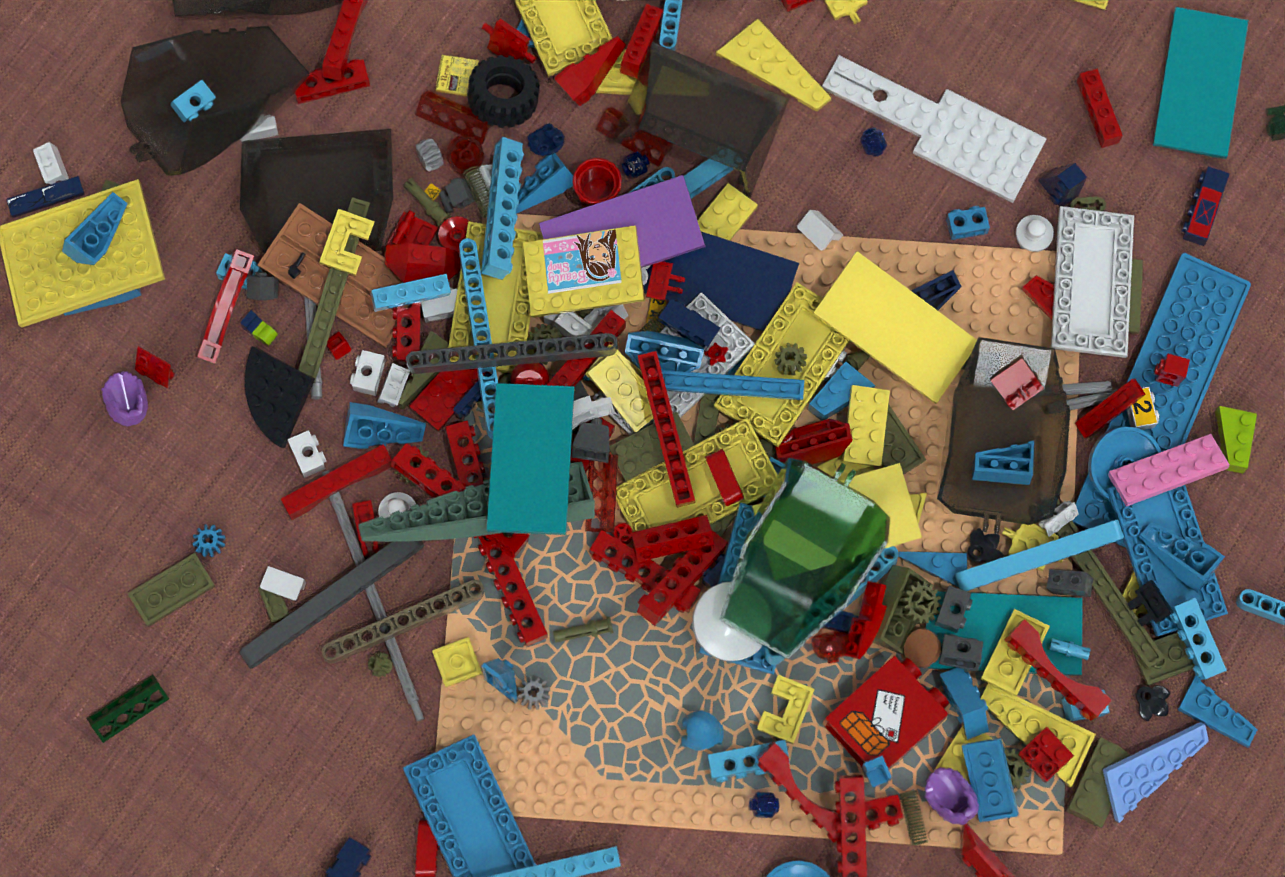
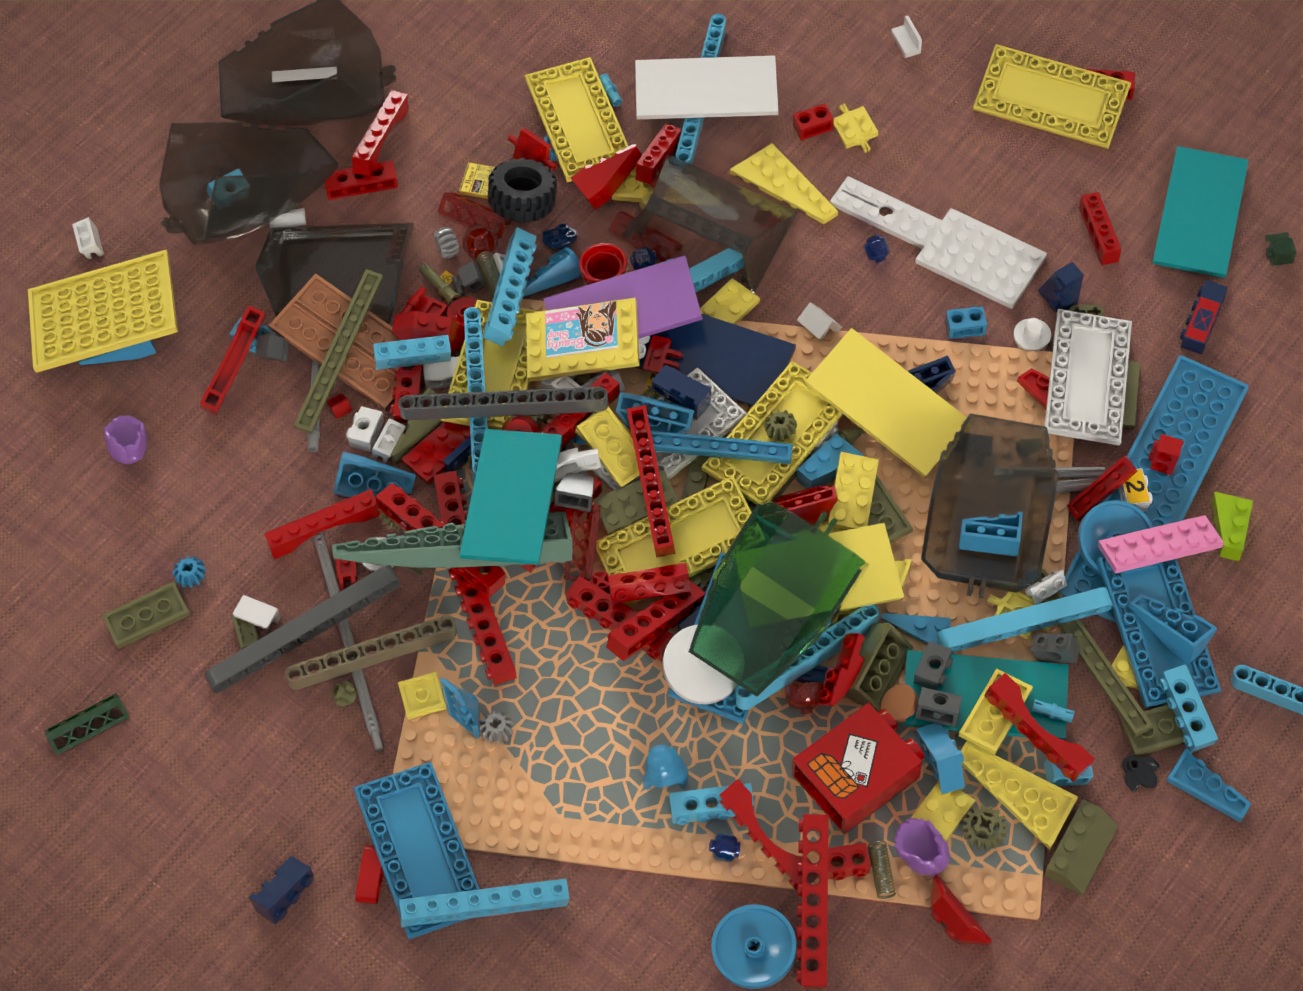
camera: 10 degrees right, 15 degrees down
(45, 196) = (77, 266): dark blue tile -> none
(93, 236) = (117, 288): dark azure wedge -> none
(153, 367) = (157, 413): red hinge -> none
(258, 328) = (263, 385): leg -> none
(275, 394) = (271, 442): black plate -> none
(293, 270) = (303, 333): black hand -> none
(311, 464) = (290, 490): white brick -> none
(344, 225) = (343, 311): light yellow plate -> none
(593, 628) = (562, 669): olive pin -> none
(716, 349) = (707, 415): red plate -> none
(724, 477) = (706, 528): red beam -> none
(799, 699) = (768, 748): light yellow plate -> none
(877, 771) = (843, 811): dark azure panel -> none
(915, 594) = (902, 658): olive gear -> none
(985, 545) = (968, 611): black plate -> none
(990, 779) = (964, 832): dark azure plate -> none
(1017, 384) = (1008, 460): hinge -> none
(1045, 754) = (1024, 813): red plate -> none
(1149, 768) = (1130, 837): light blue wing -> none
(1154, 602) = (1142, 668): black plate -> none

